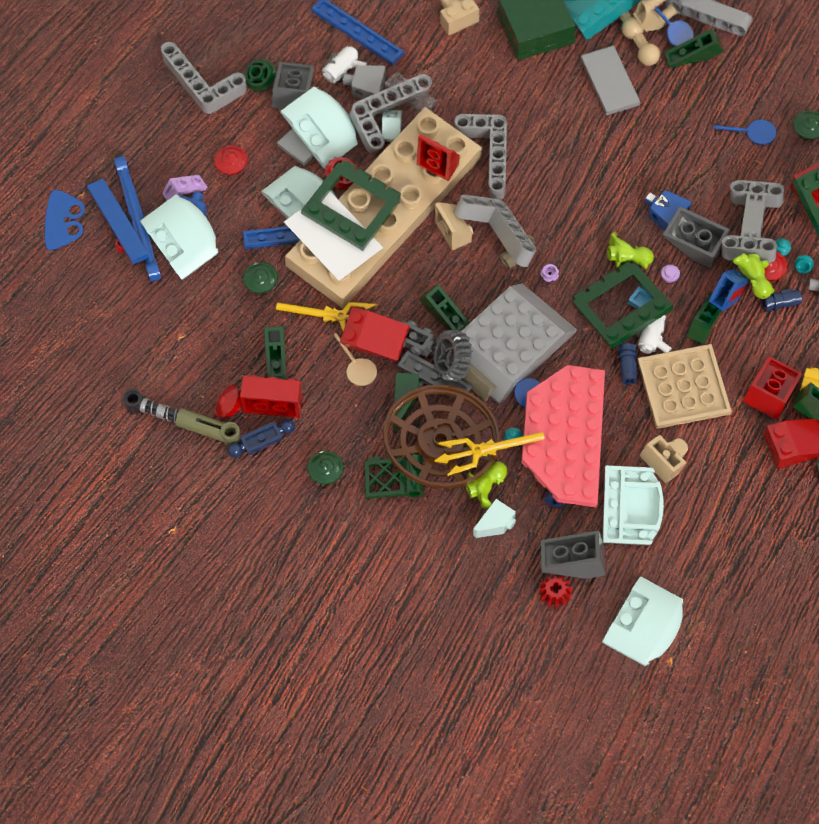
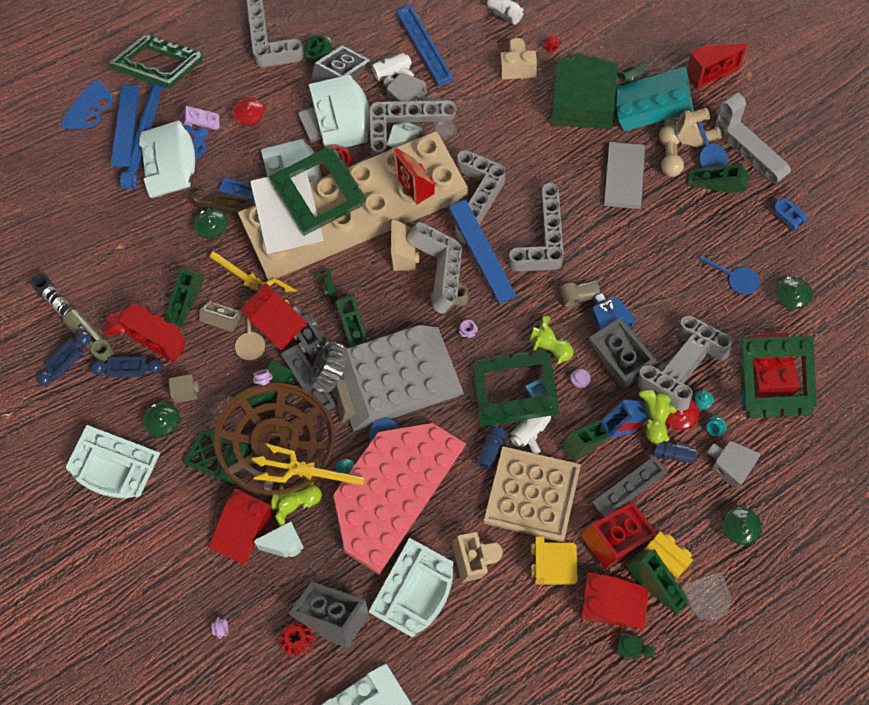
camera: 30 degrees right, 0 degrees up
(117, 162) = (152, 75): none -> dark green hinge
(199, 456) = (64, 358): none -> dark blue plate
(265, 252) = (227, 203): none -> dark brown plate
(304, 525) = (111, 464): none -> light aqua slope
(318, 357) = (219, 316): none -> dark tan slope
(327, 433) = (184, 388): none -> dark tan brick
(399, 389) = (262, 377): none -> lavender plate
(406, 289) = (328, 288): none -> dark green plate
(451, 525) = (239, 526): none -> red slope
(484, 613) = (220, 628): none -> lavender plate
(526, 199) = (482, 252): none -> blue tile
(574, 160) = (550, 250): none -> light grey beam
(626, 203) = (575, 294): none -> dark tan piece
(732, 432) = (554, 562): none -> yellow bracket
(760, 345) = (629, 487): none -> dark grey plate
(764, 54) = (784, 209): none -> blue plate

